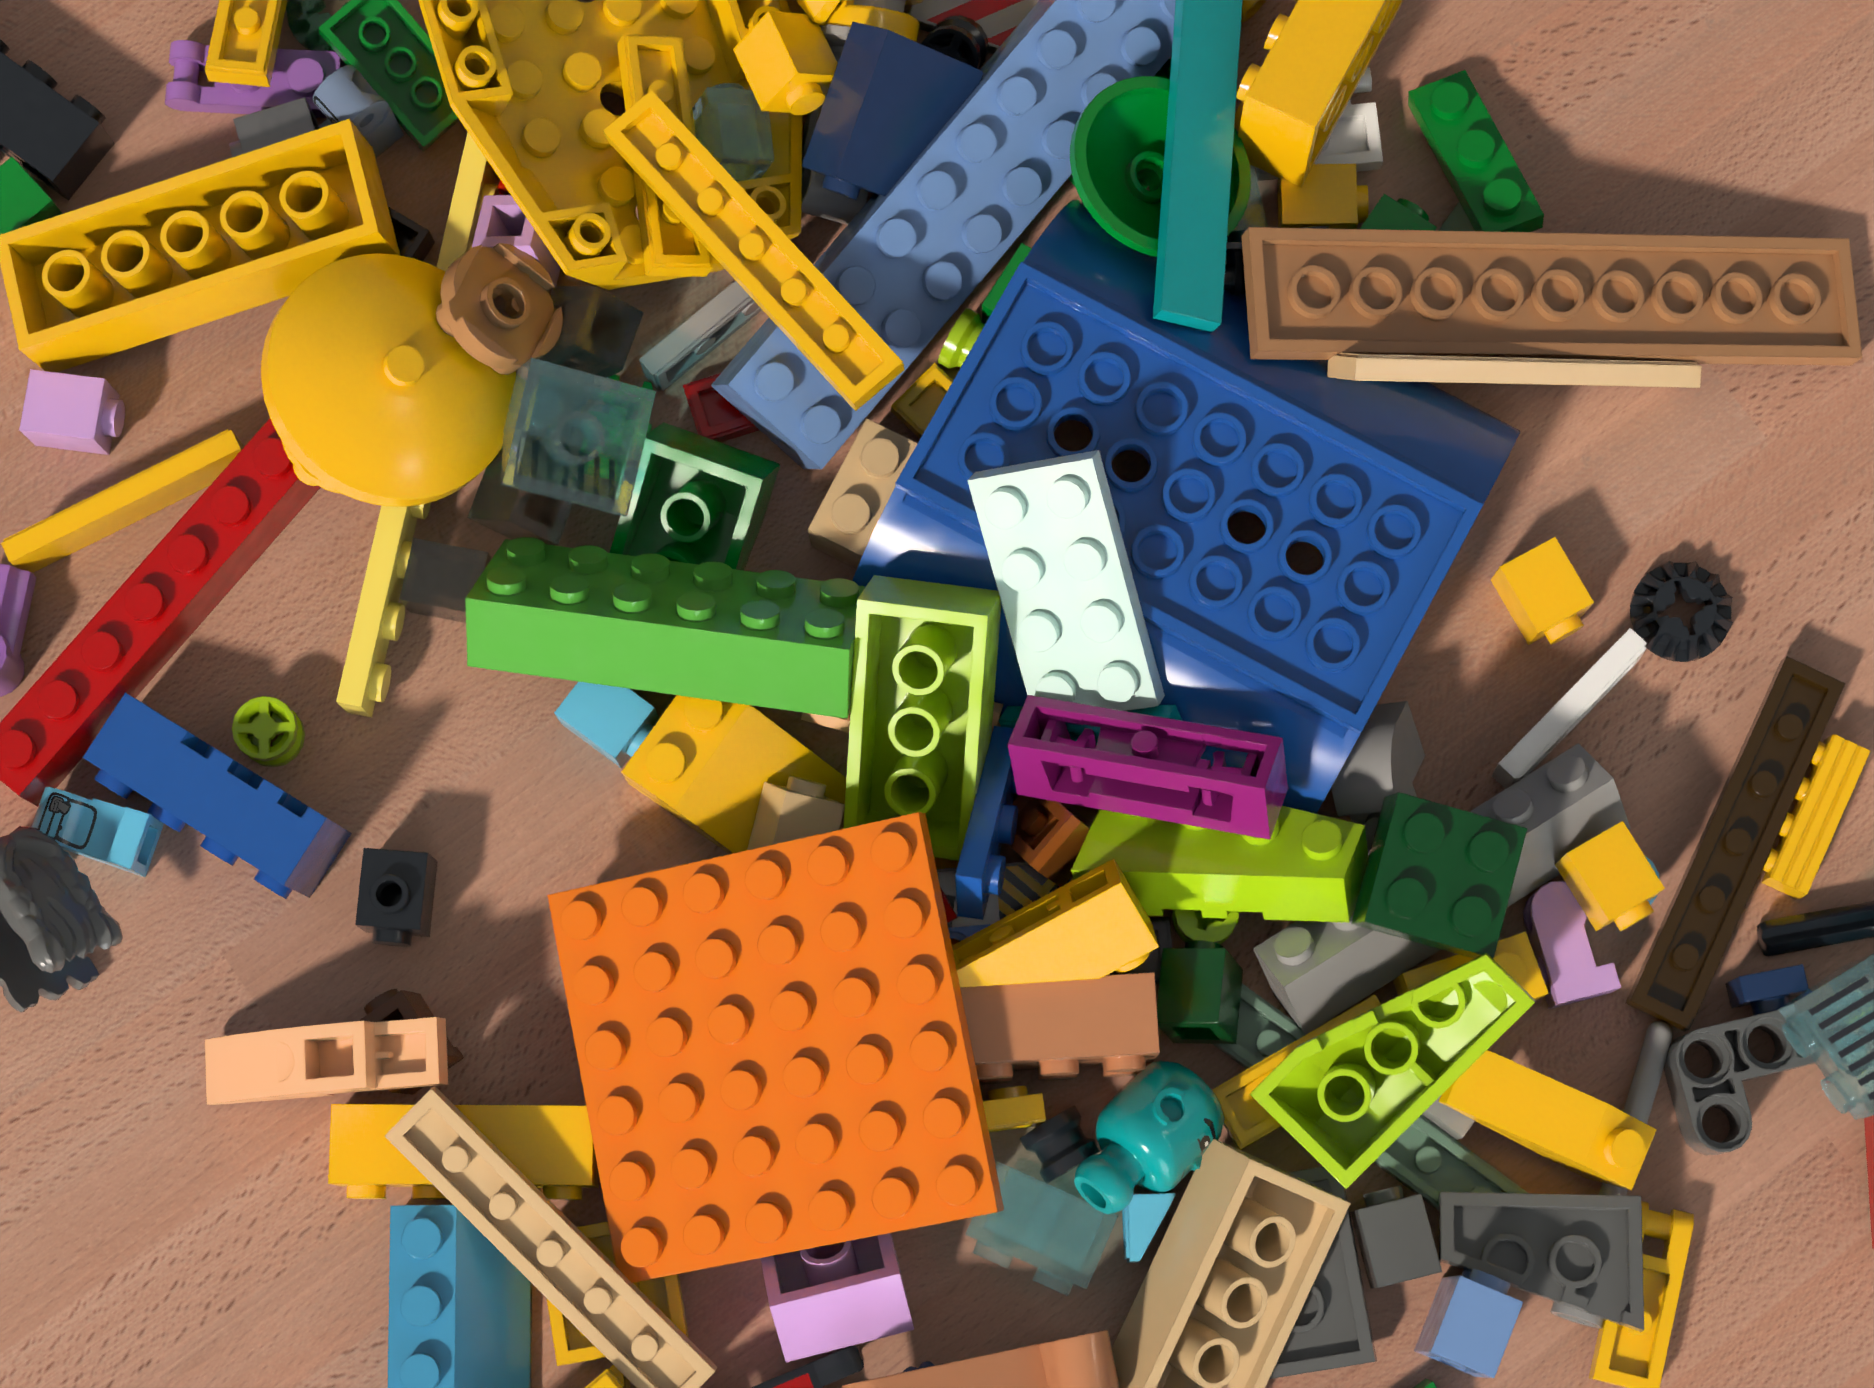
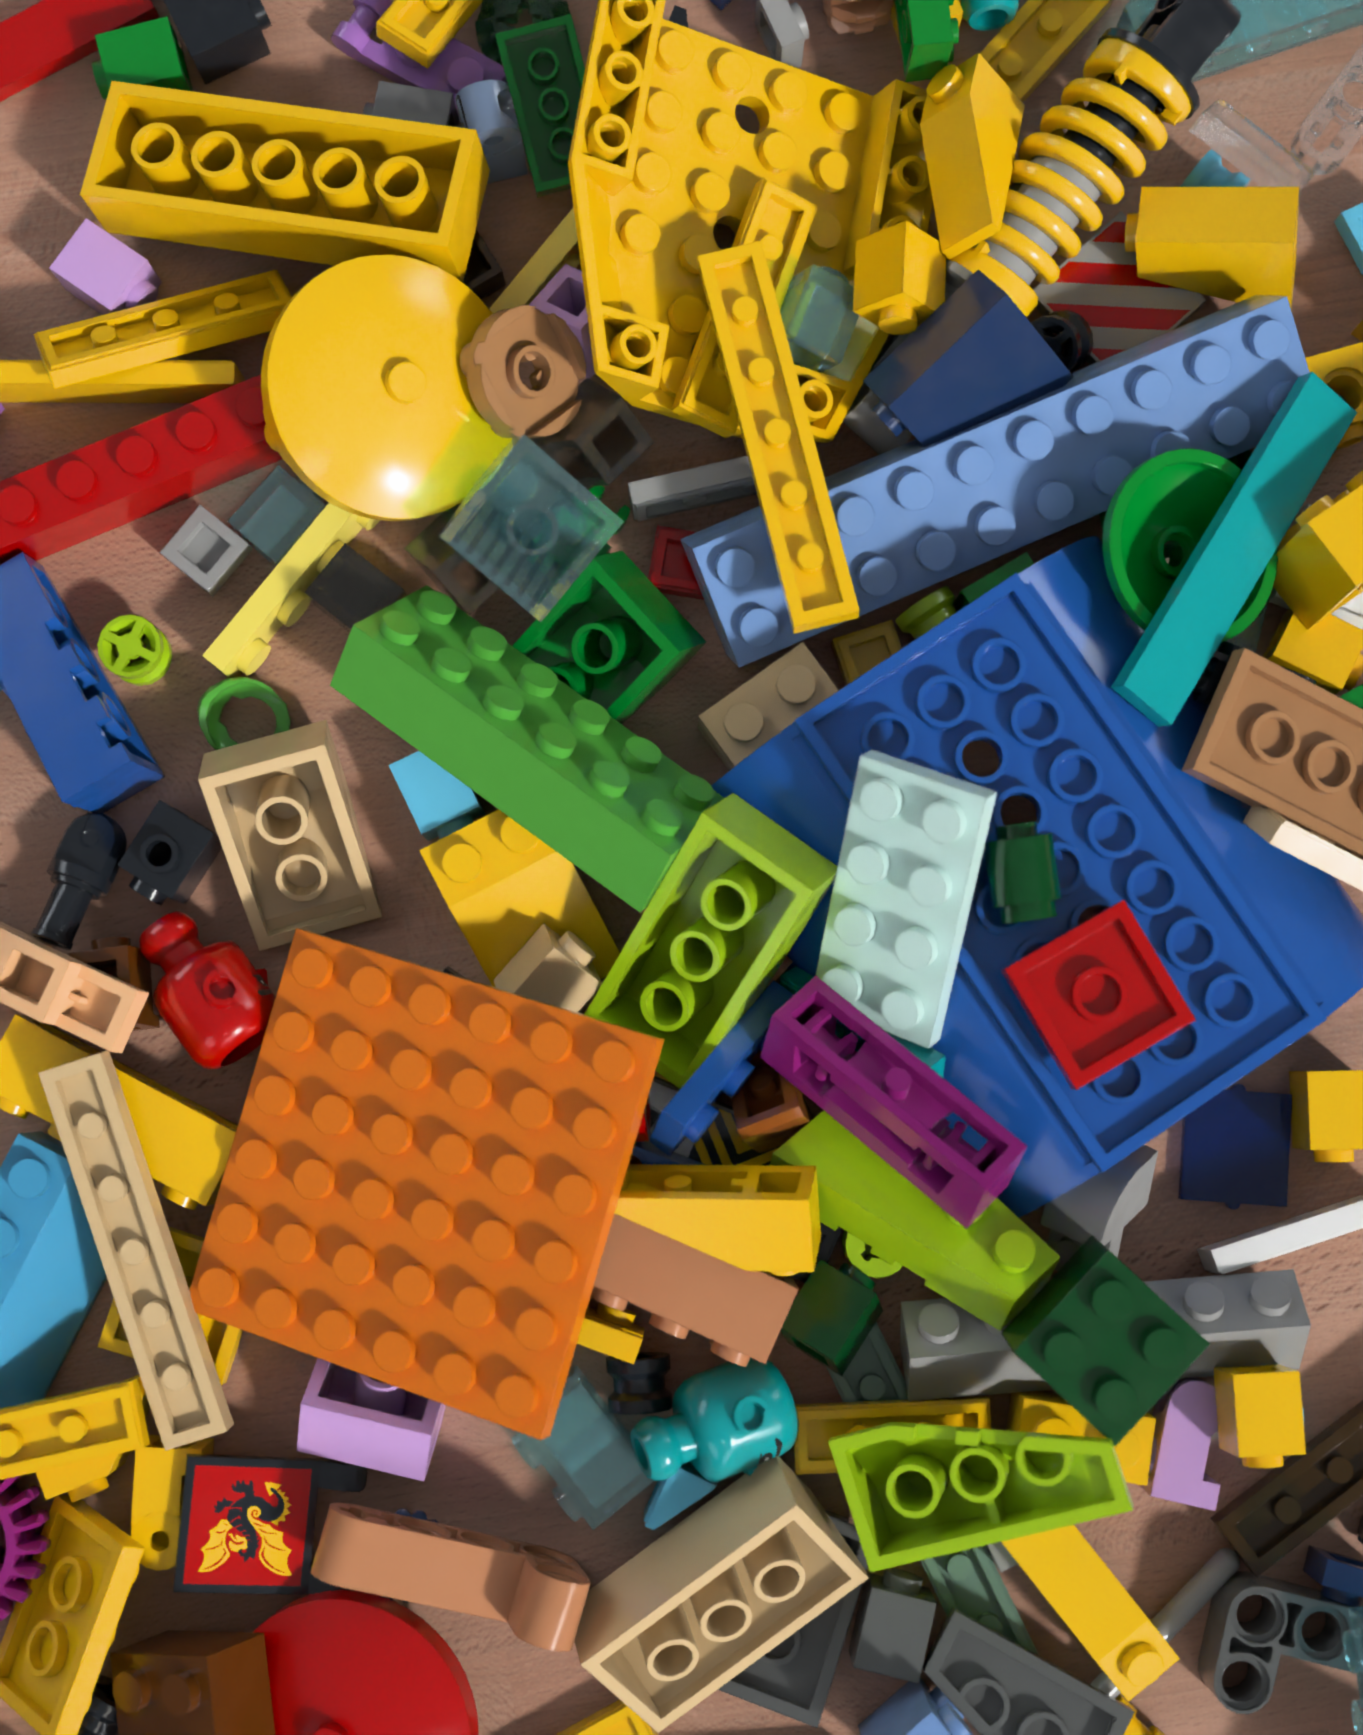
camera: 25 degrees right, 5 degrees up
(151, 431) = (162, 329): none -> yellow tile
(287, 610) = (206, 550): none -> light grey plate
(322, 953) = (82, 872): none -> black arm
(339, 545) = (277, 514): none -> clear light blue brick
(382, 716) = (218, 695): none -> bright green piece
(494, 999) = (209, 993): none -> red piece
(496, 822) = (290, 834): none -> tan slope
(1158, 511) = (1022, 873): none -> dark green brick
(1276, 581) = (1098, 995): none -> red plate
(1477, 669) = (1237, 1149): none -> clear blue piece

